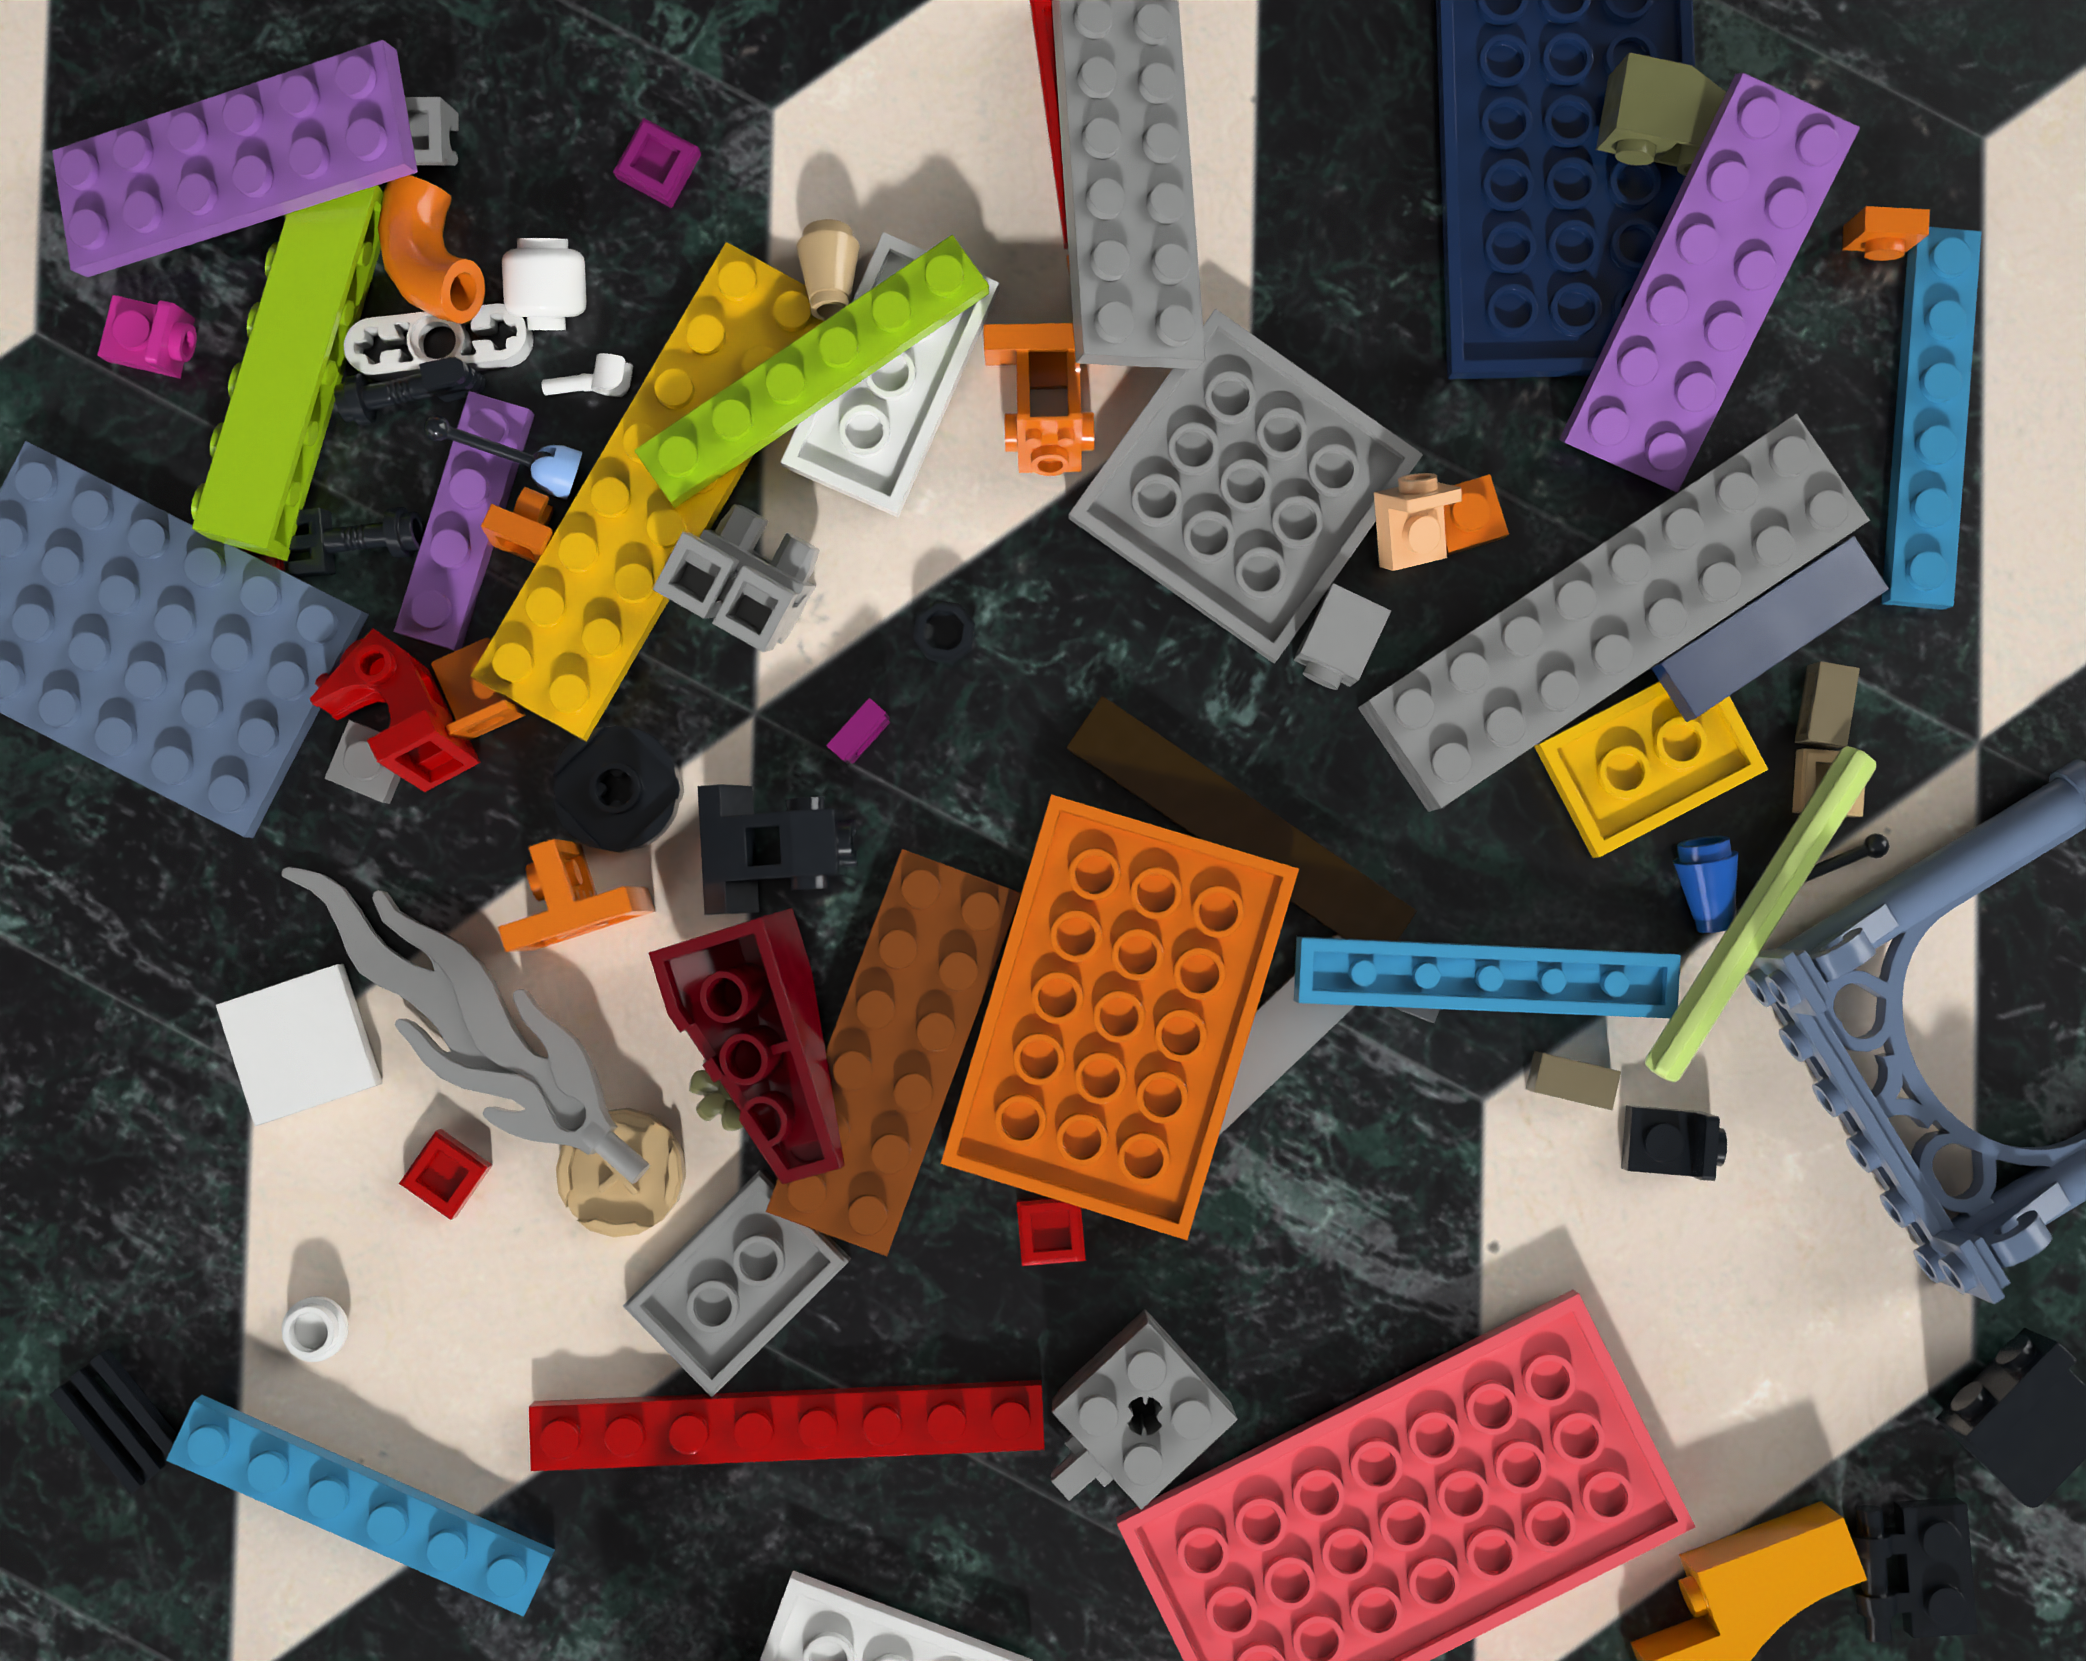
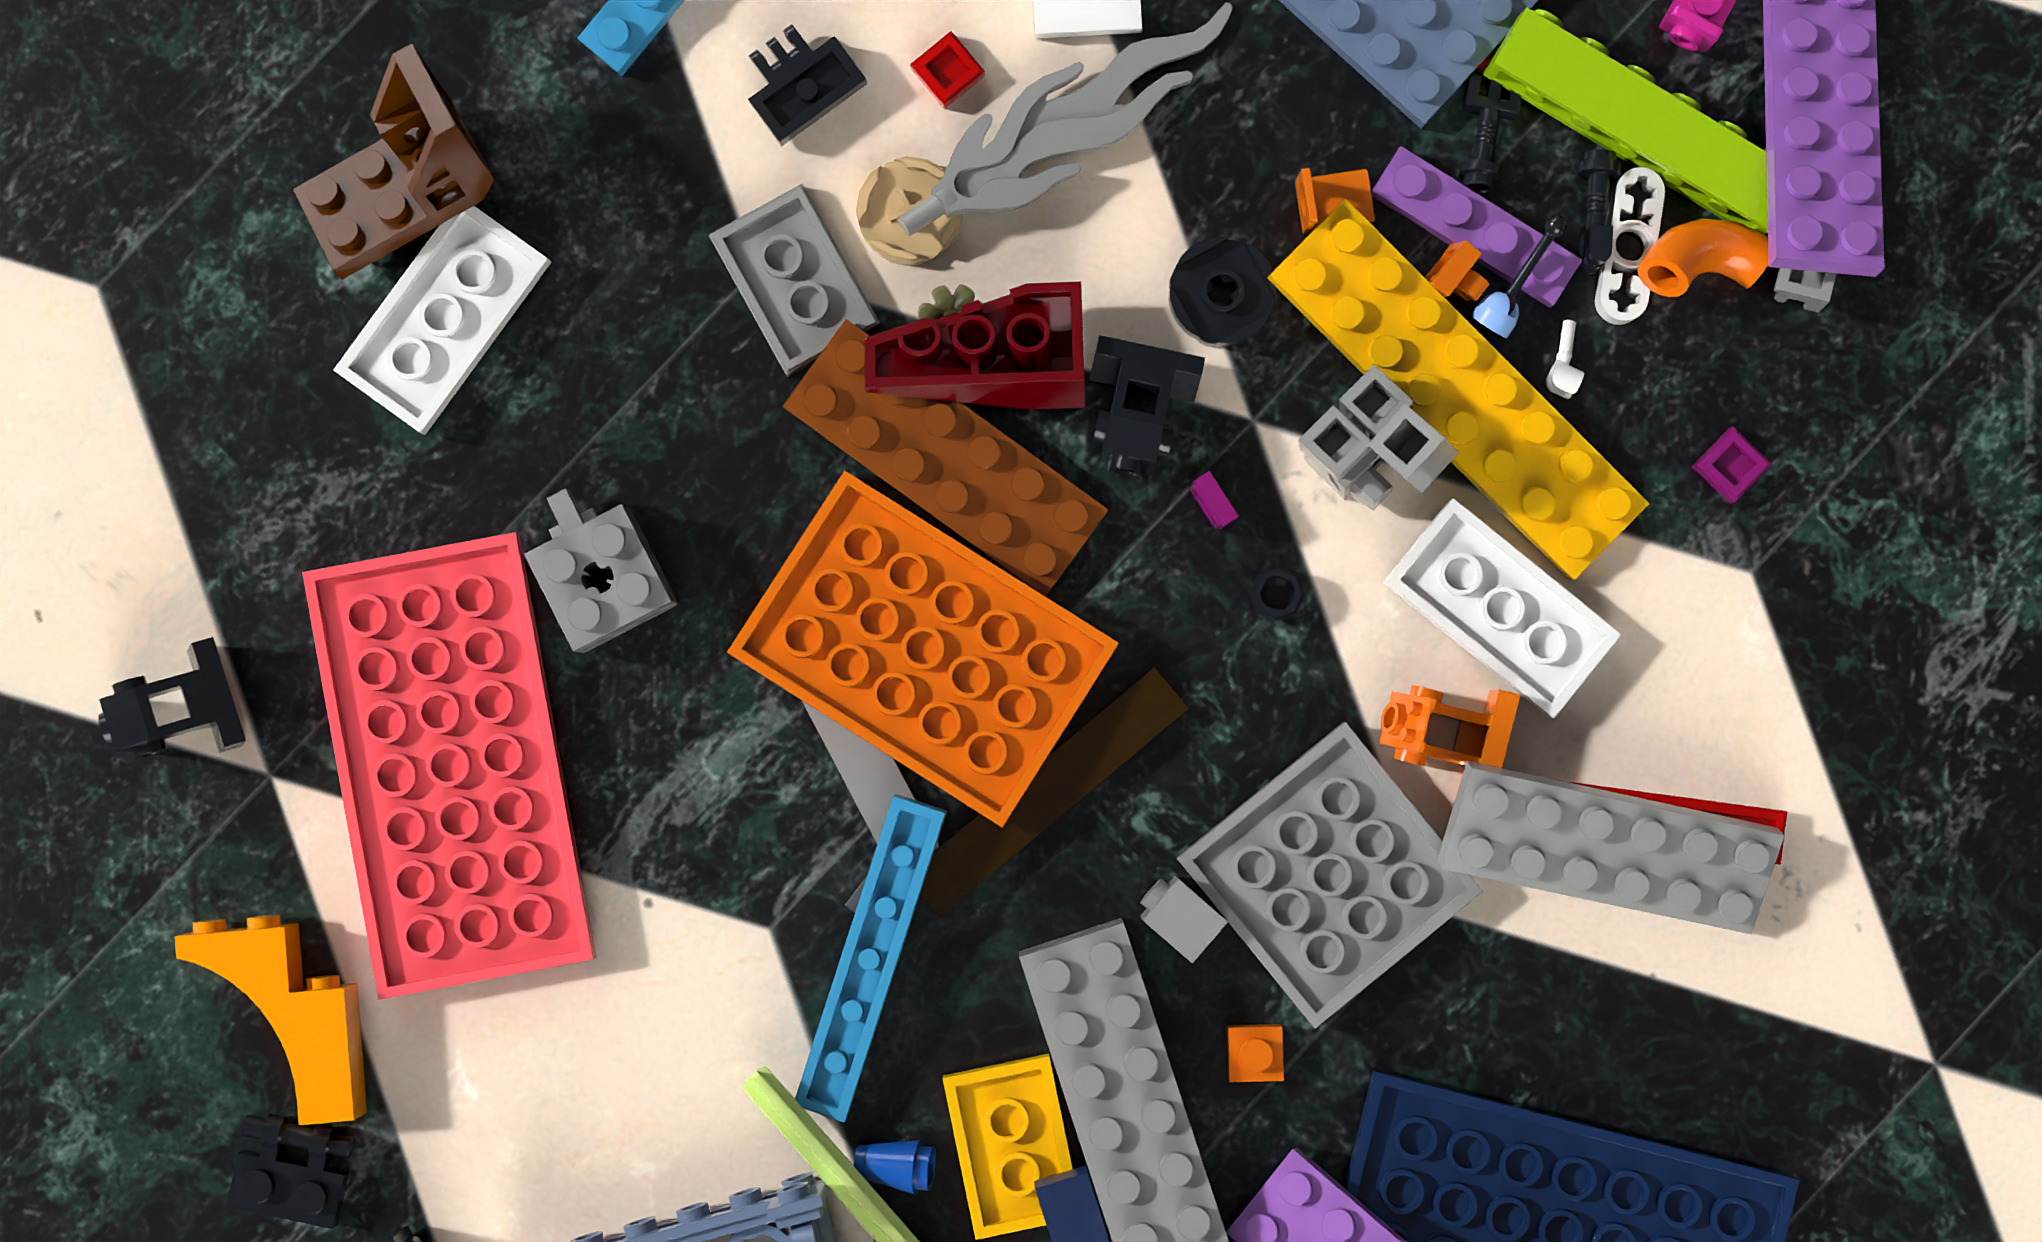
camera: 100 degrees right, 0 degrees up
(357, 767) = (1299, 97): light grey plate -> none
(416, 740) = (1304, 142): red tile -> none
(507, 1338) = (802, 84): none -> black hinge
(544, 282) = (1654, 345): white head -> none
(574, 908) = (1135, 232): orange bracket -> none
(736, 518) = (1413, 448): none -> light grey brick
(786, 1425) = (668, 289): red plate -> none
(812, 371) = (1520, 545): lime plate -> none
(828, 265) = (1607, 582): tan cone -> none
(1049, 1231) = (763, 544): red tile -> none
(1412, 521) = (1261, 1004): light nougat bracket -> none
(1573, 1080) = (766, 1006): dark tan piece -> none
(1673, 1142) = (692, 1073): black bracket -> none

